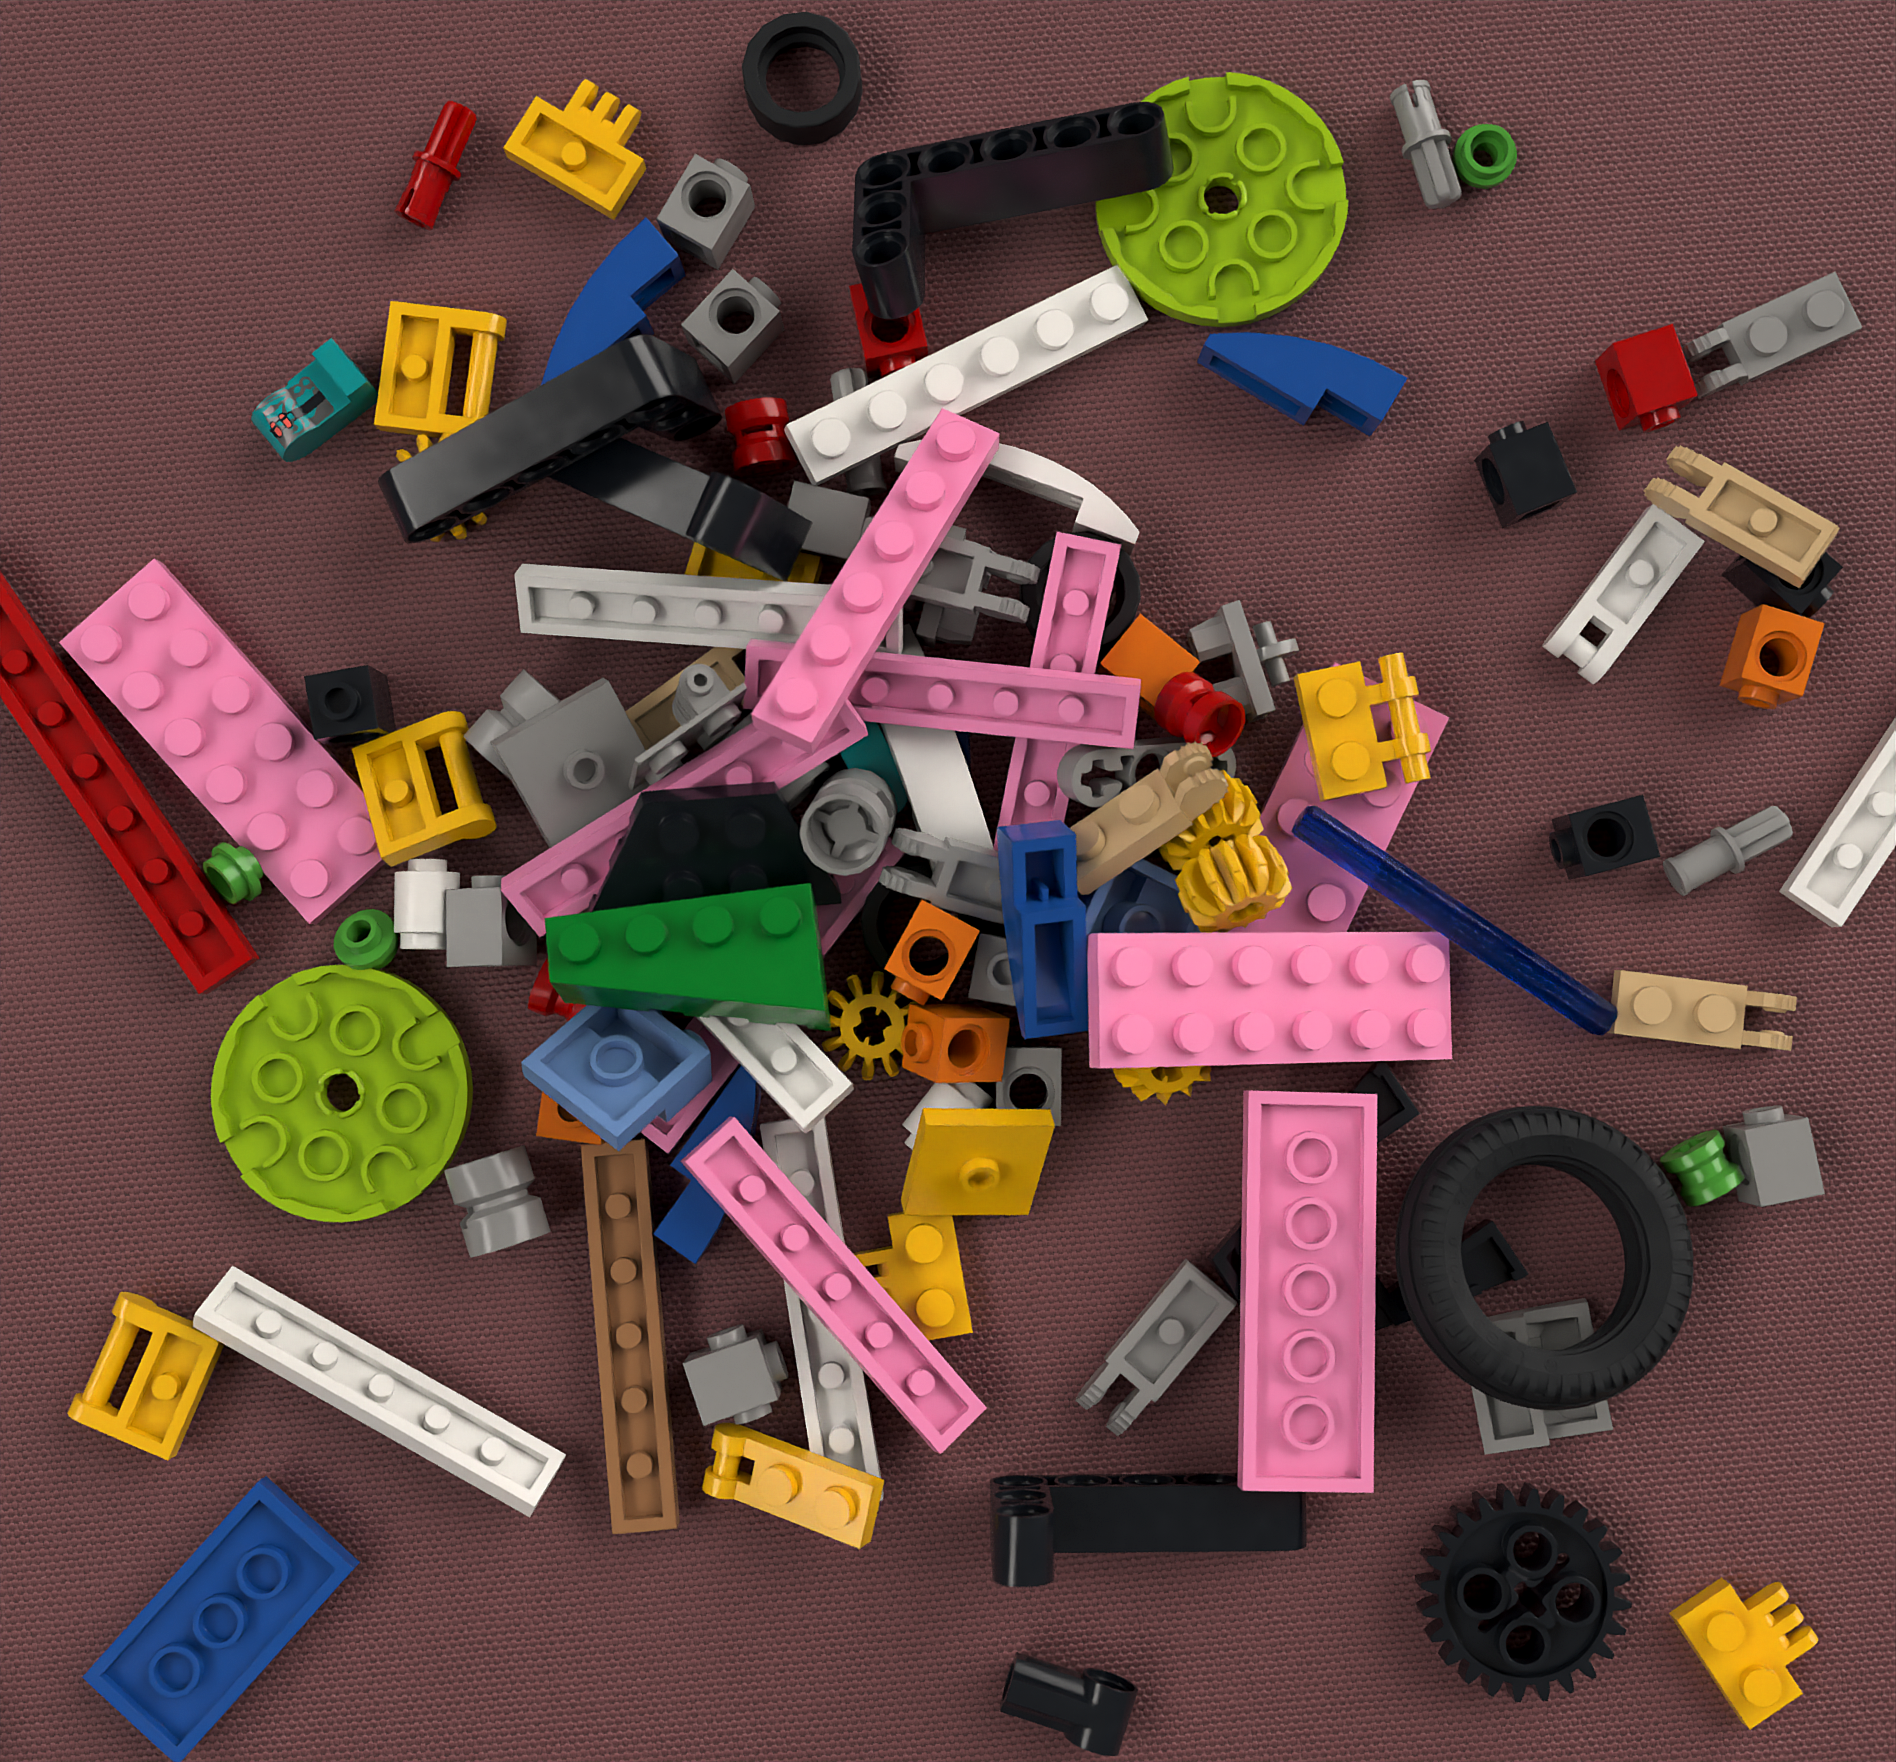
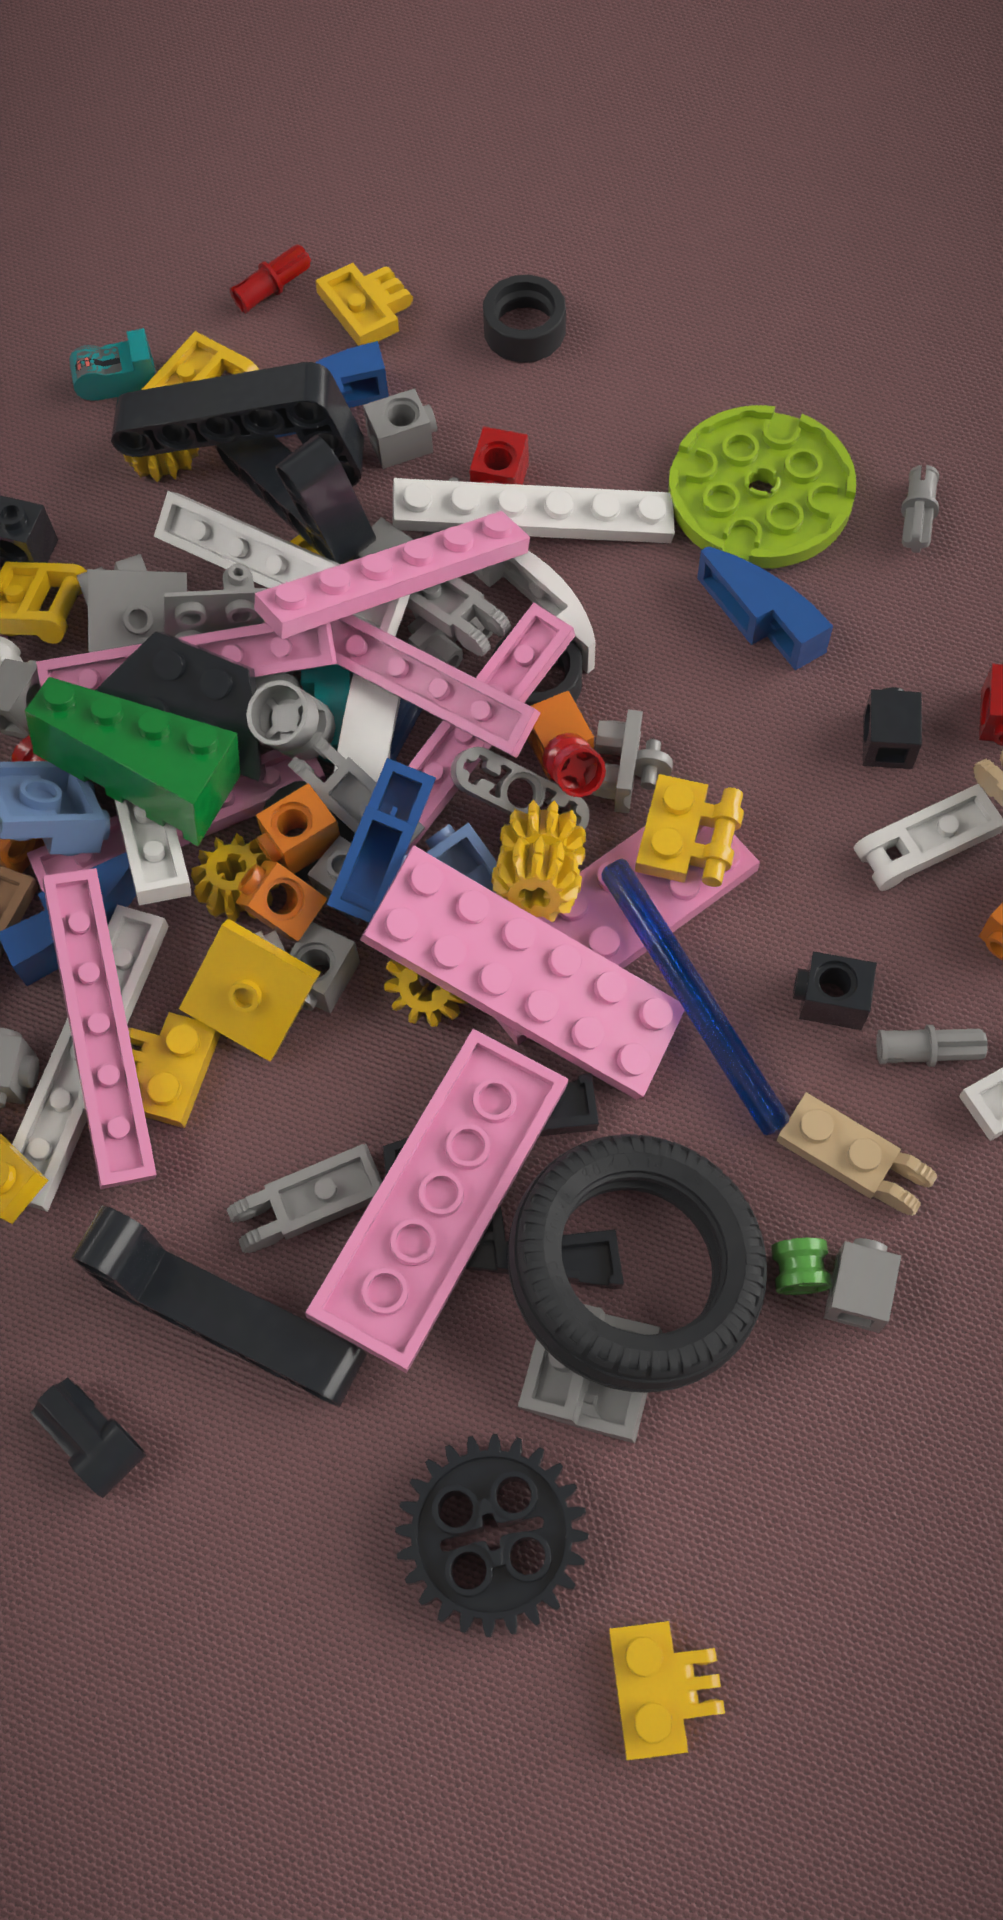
camera: 30 degrees right, 20 degrees down
(712, 236) = (421, 360): light grey brick -> none
(760, 437) = (377, 491): red wheel -> none
(993, 179) = (609, 403): black beam -> none
(1146, 815) = (493, 804): tan hinge -> none
(1492, 140) = (961, 522): bright green plate -> none

